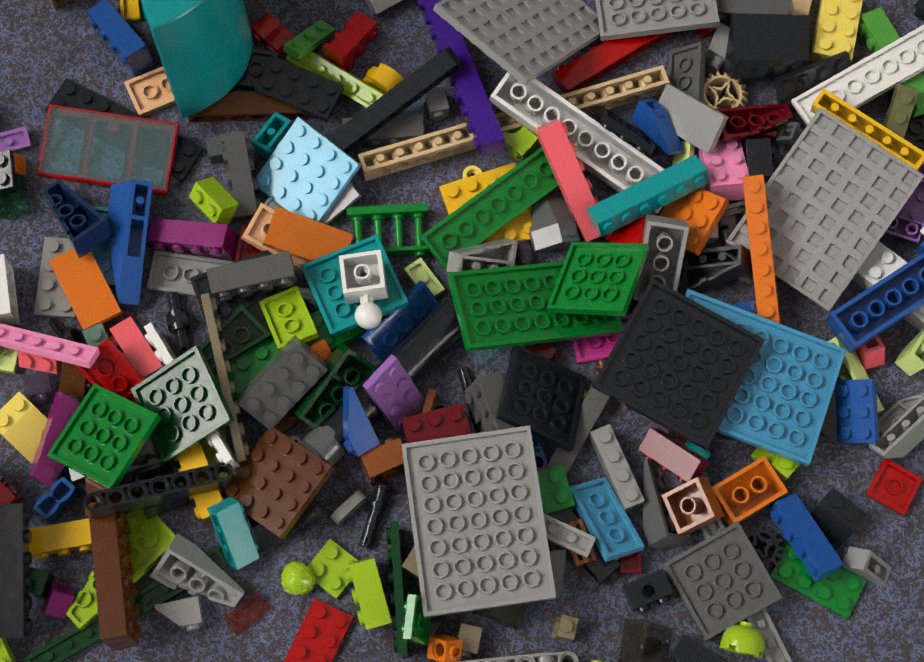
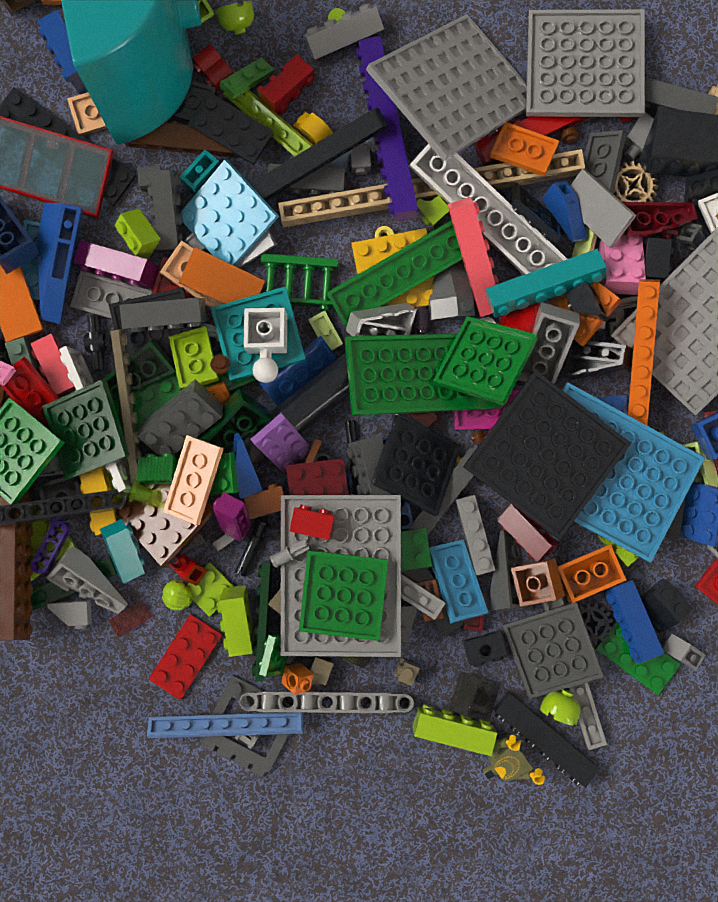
camera: 10 degrees right, 15 degrees up
(152, 558) = (58, 546): none -> dark purple beam
(247, 464) = (140, 493): none -> clear neon green brick
(265, 436) = (156, 469): none -> green brick
(305, 437) = (193, 480): none -> light nougat plate
(308, 546) = (189, 569): none -> red brick
(319, 318) = (220, 364): none -> reddish brown plate
(331, 430) = (225, 476): none -> green plate
(351, 475) = (232, 516): none -> magenta brick
(420, 501) = (290, 553): none -> light grey axle
(439, 465) = (312, 523): none -> red brick
(484, 538) = (343, 595): none -> green plate
(604, 71) = (524, 149): none -> orange plate
(649, 56) = (570, 135): none -> reddish brown plate
(692, 208) = (586, 302): none -> black slope

